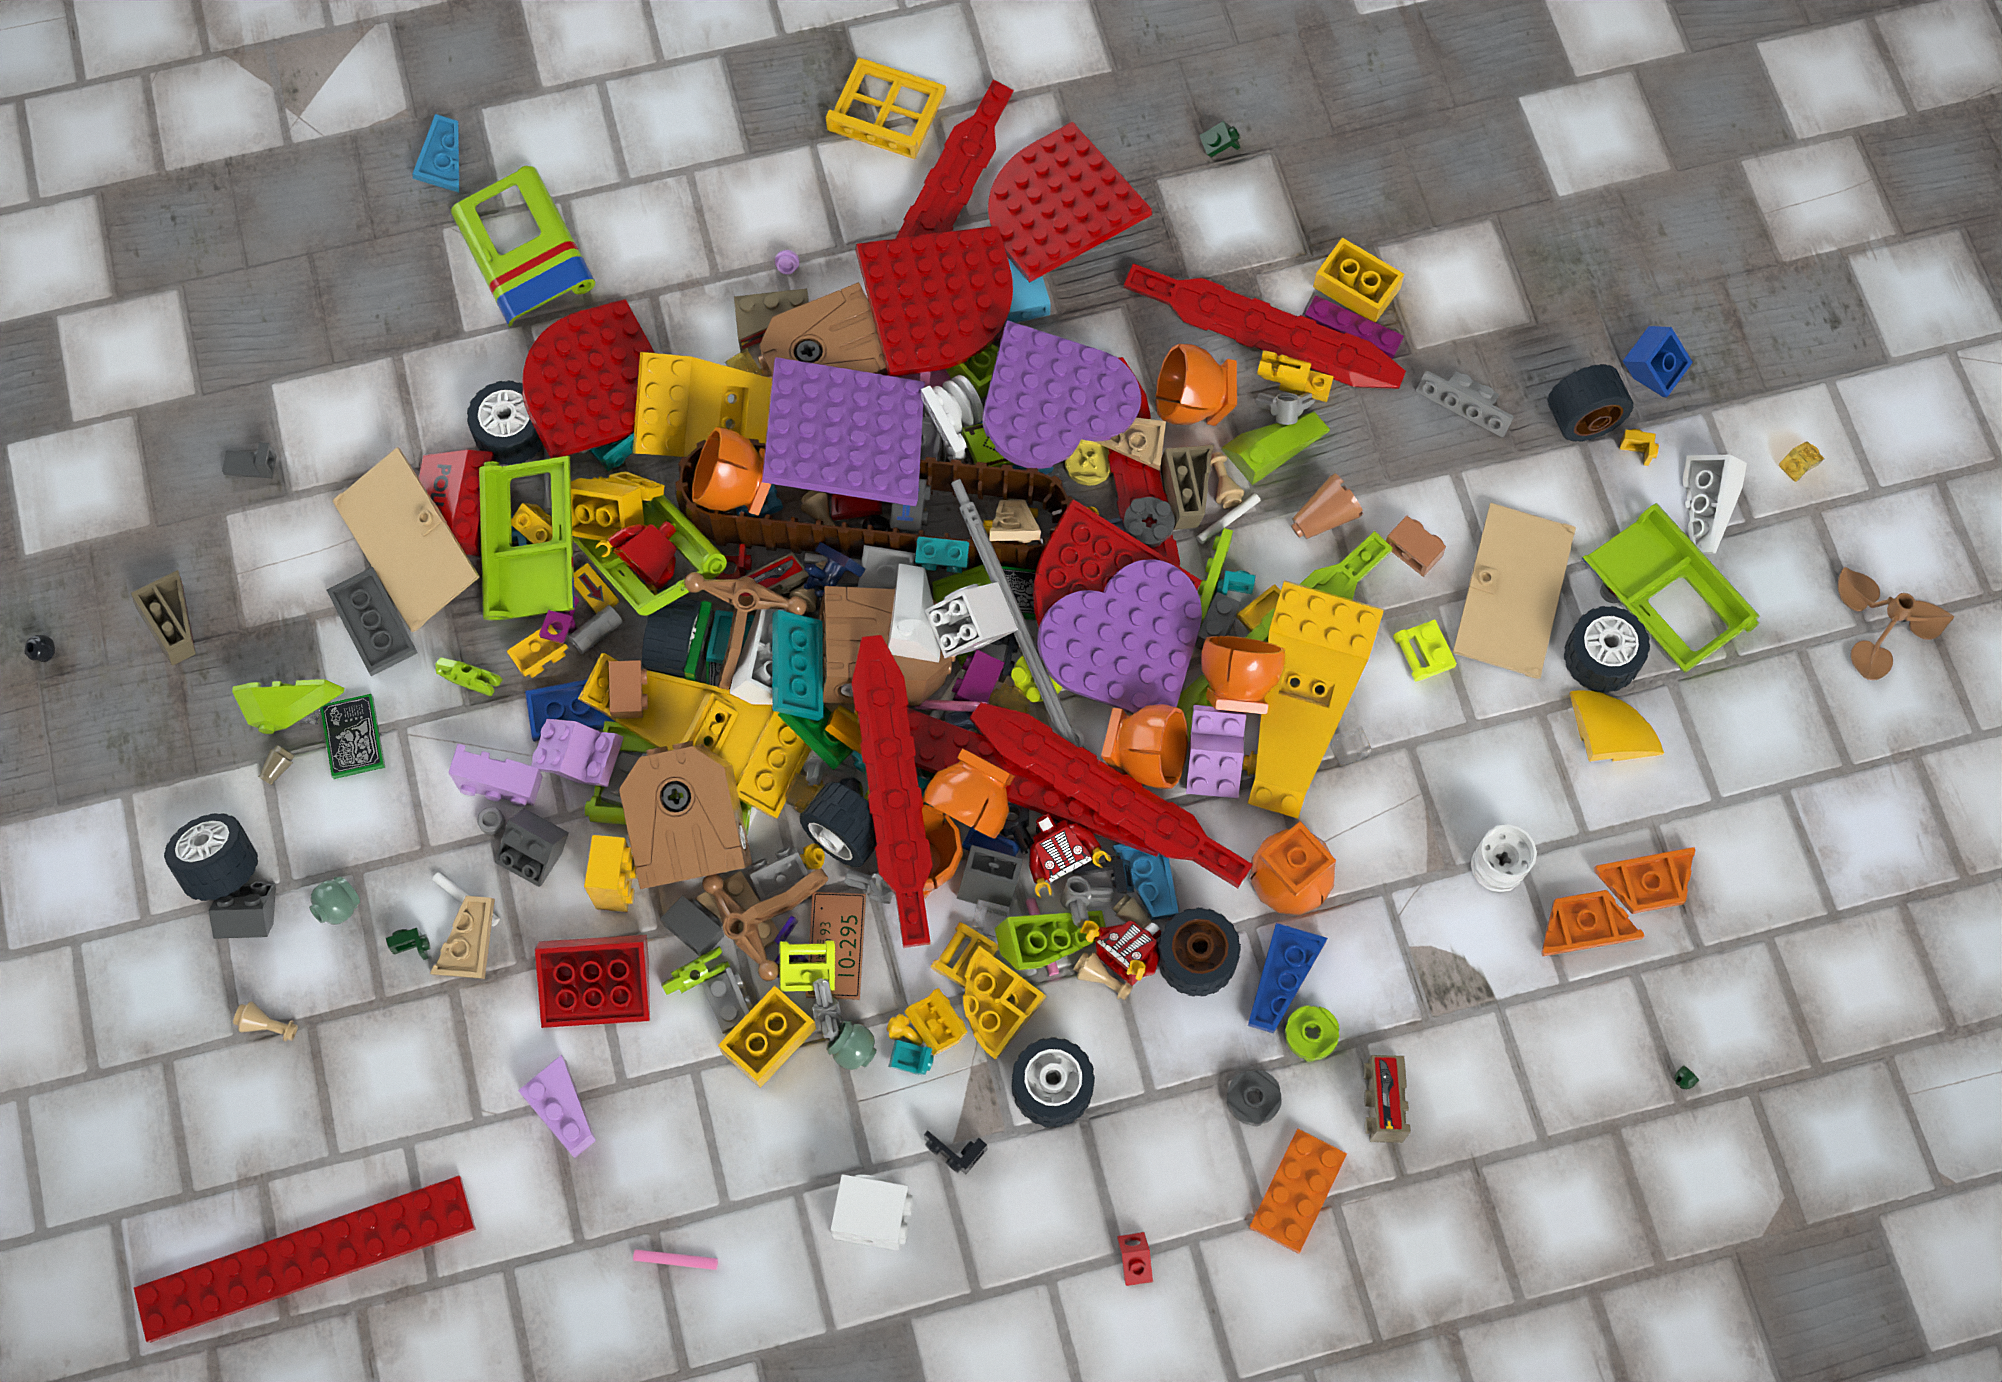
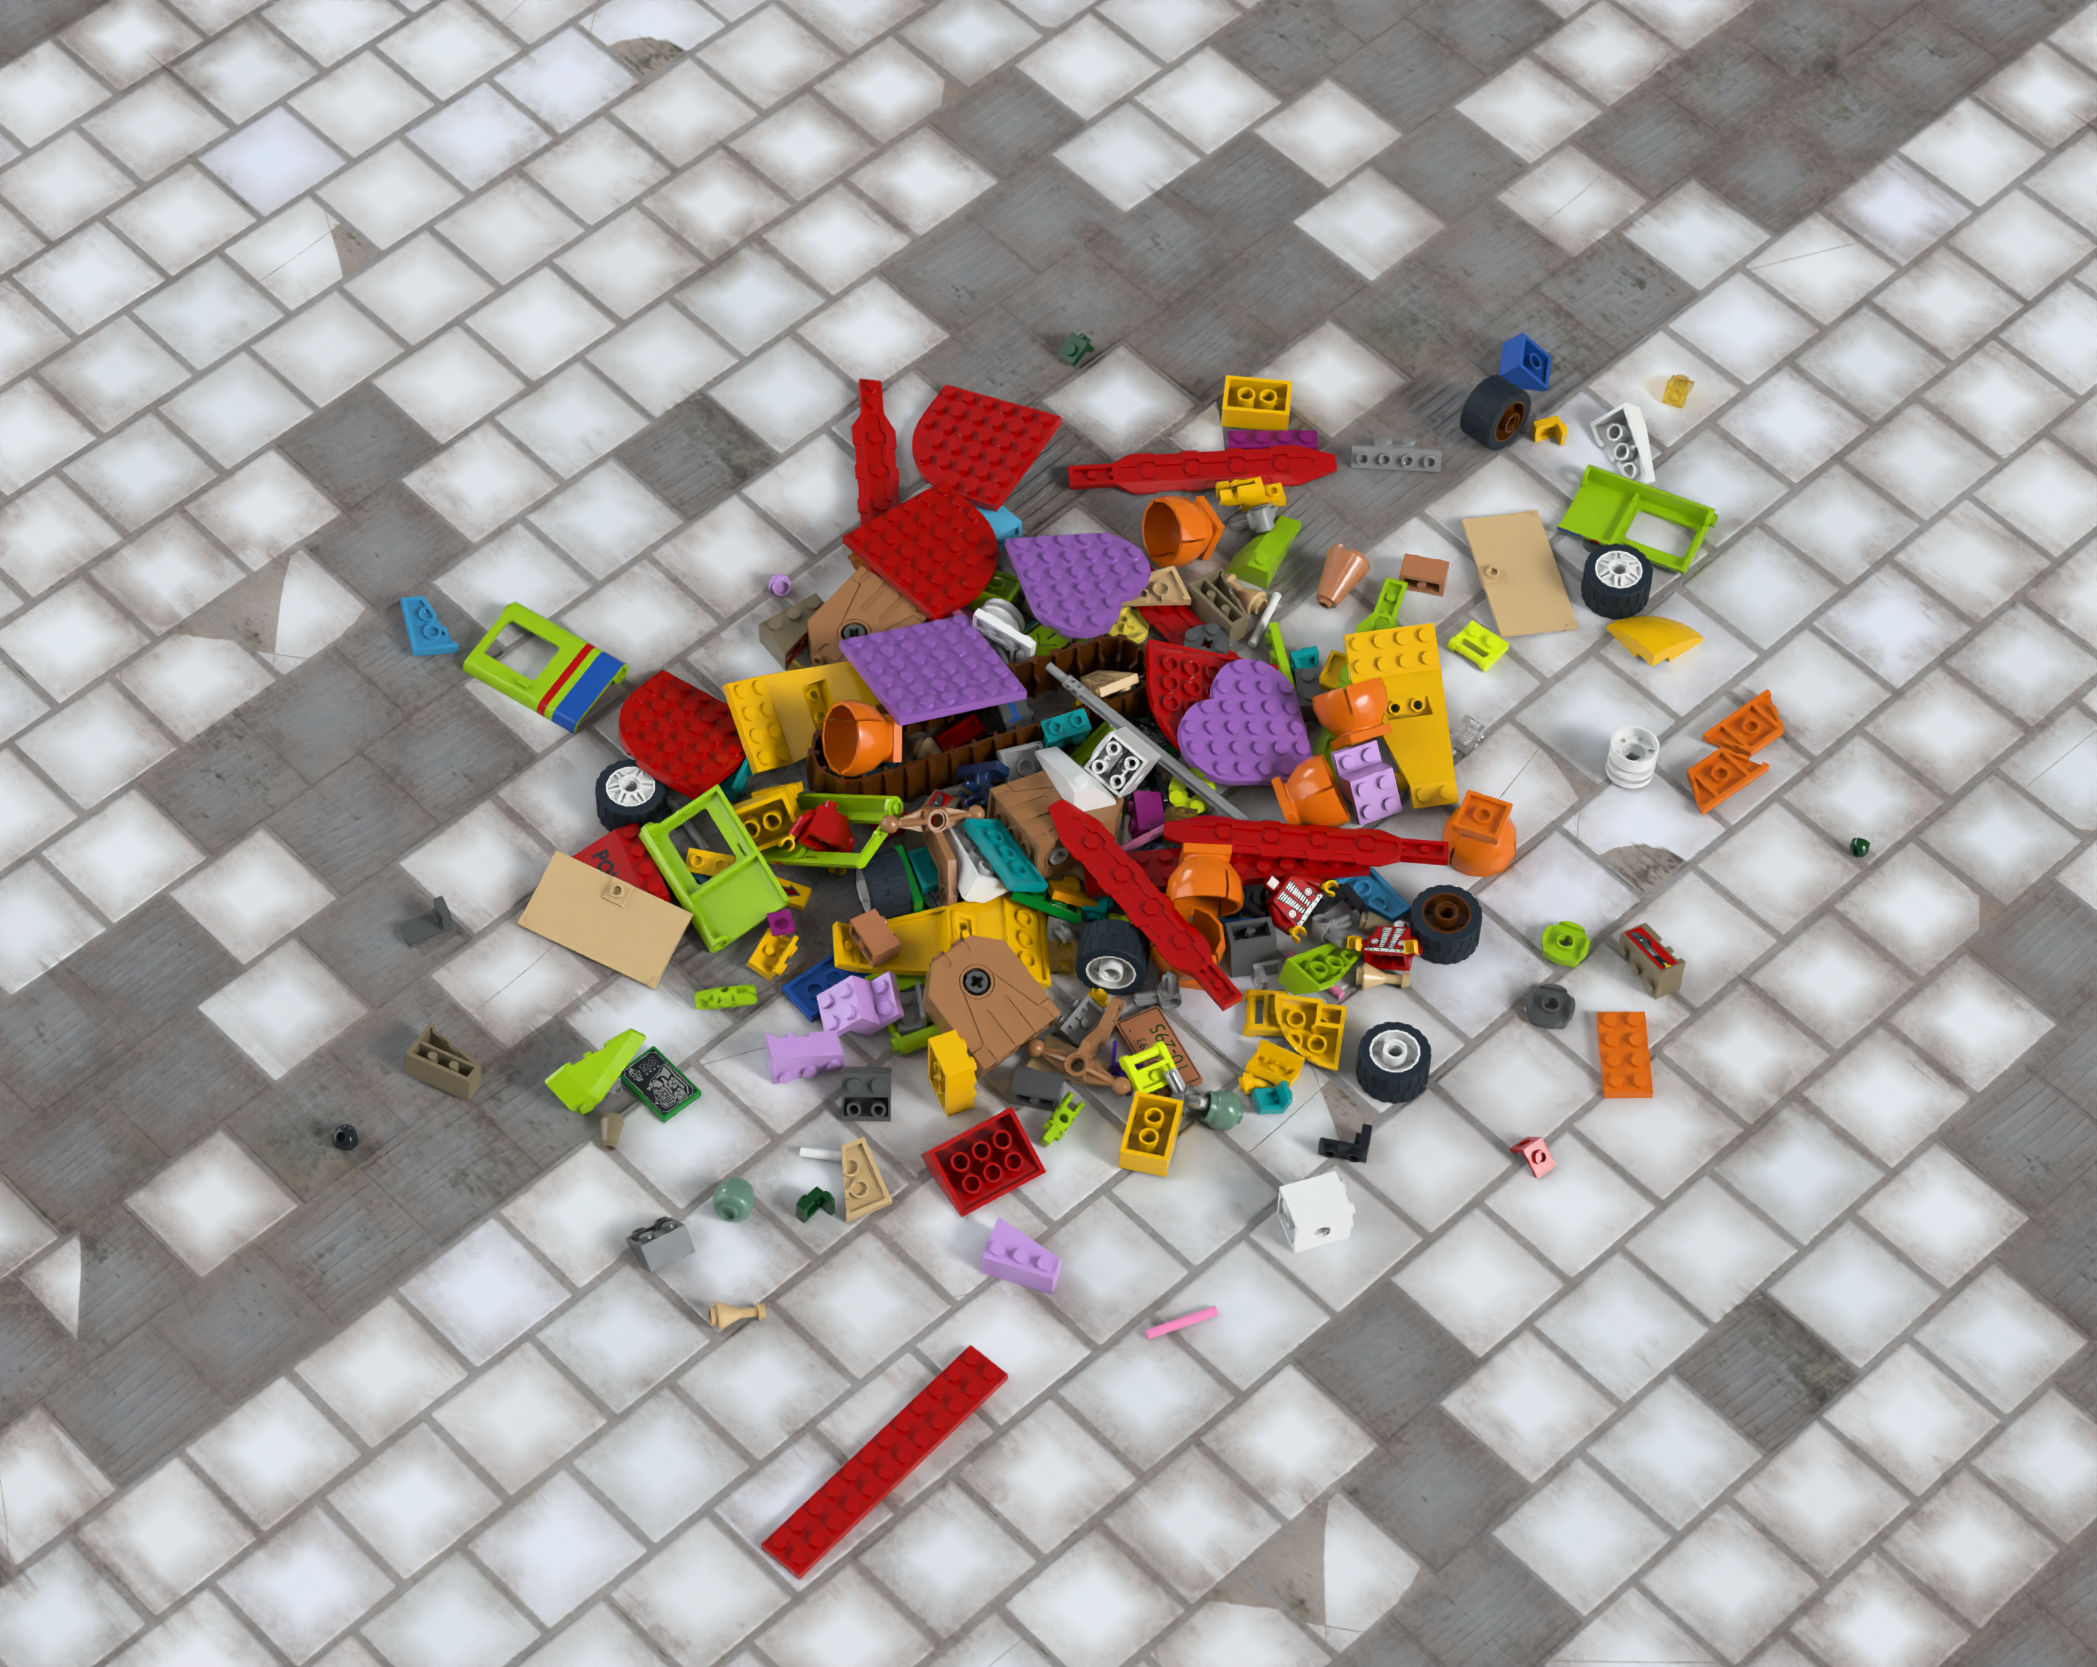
camera: 30 degrees left, 15 degrees down
(211, 856) = (613, 1209): black wheel -> none
(371, 621) = (616, 994): dark grey plate -> none
(491, 820) = (817, 1092): light grey tile -> none
(595, 629) = (809, 917): light grey axle -> none
(727, 999) = (1100, 1127): light grey bracket -> none
(875, 133) = (785, 459): yellow window -> none
(1285, 969) = (1516, 909): blue wing -> none
(1925, 620) = (1837, 461): medium nougat plant -> none

